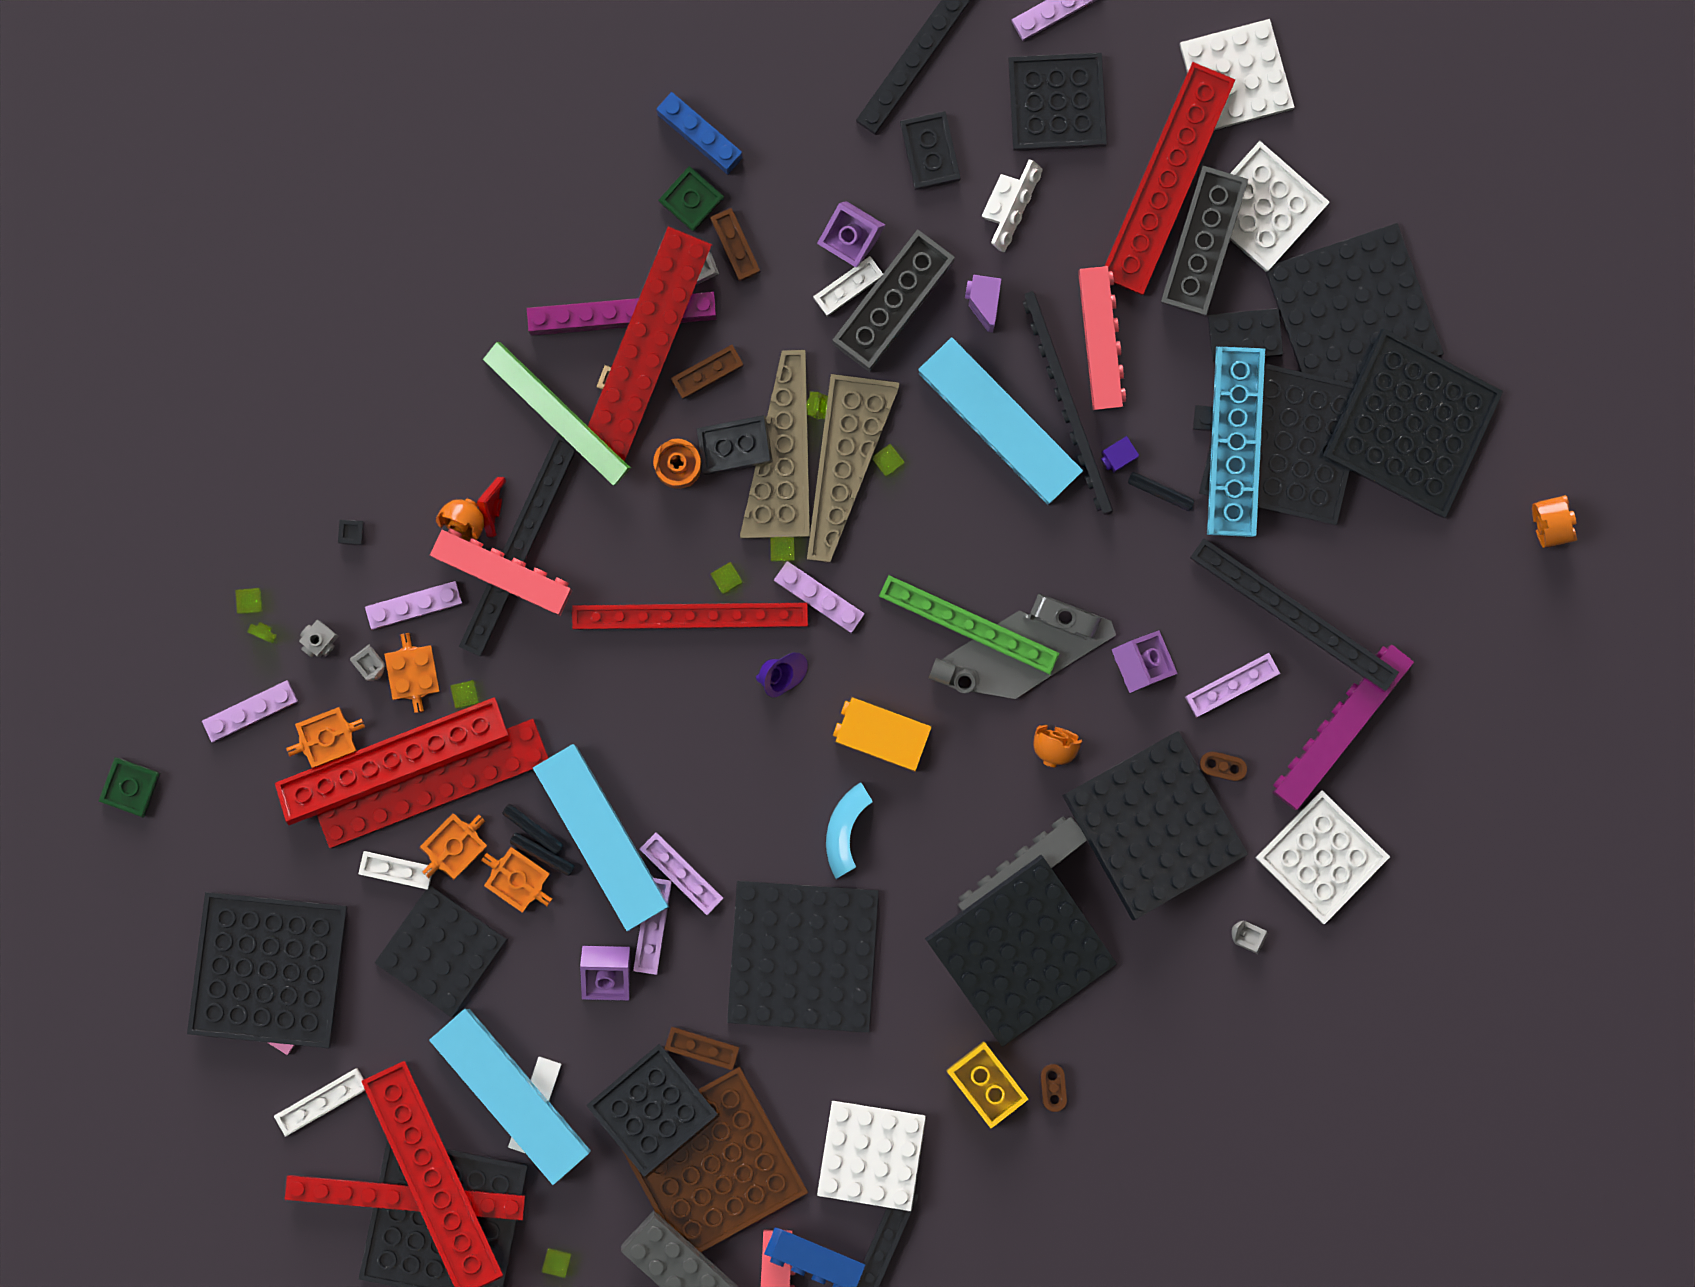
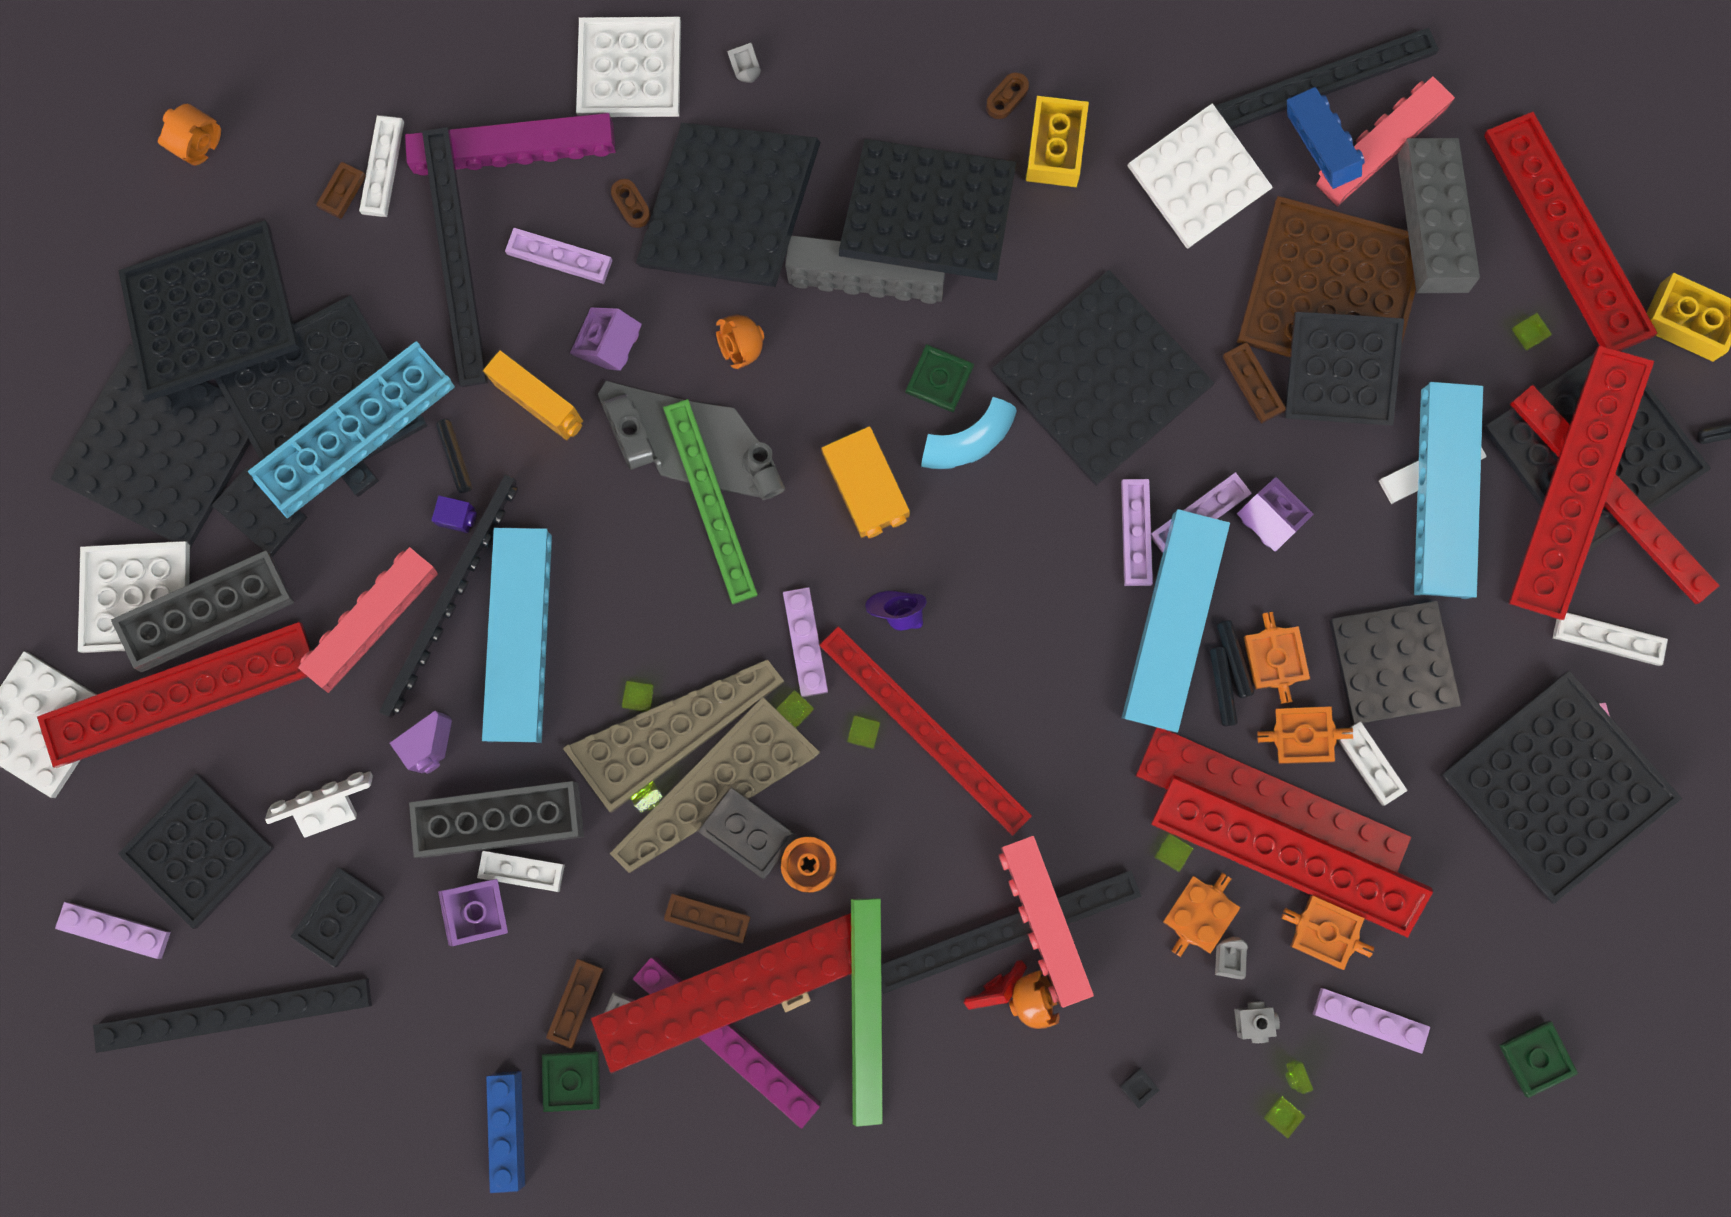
camera: 130 degrees left, 5 degrees down
(413, 605) = (1145, 971): lavender plate -> none
(905, 849) = (939, 378): none -> dark green plate
(1146, 577) = (533, 395): none -> light orange brick
(1413, 629) = (381, 166): none -> white tile
(1419, 586) = (341, 190): none -> reddish brown plate

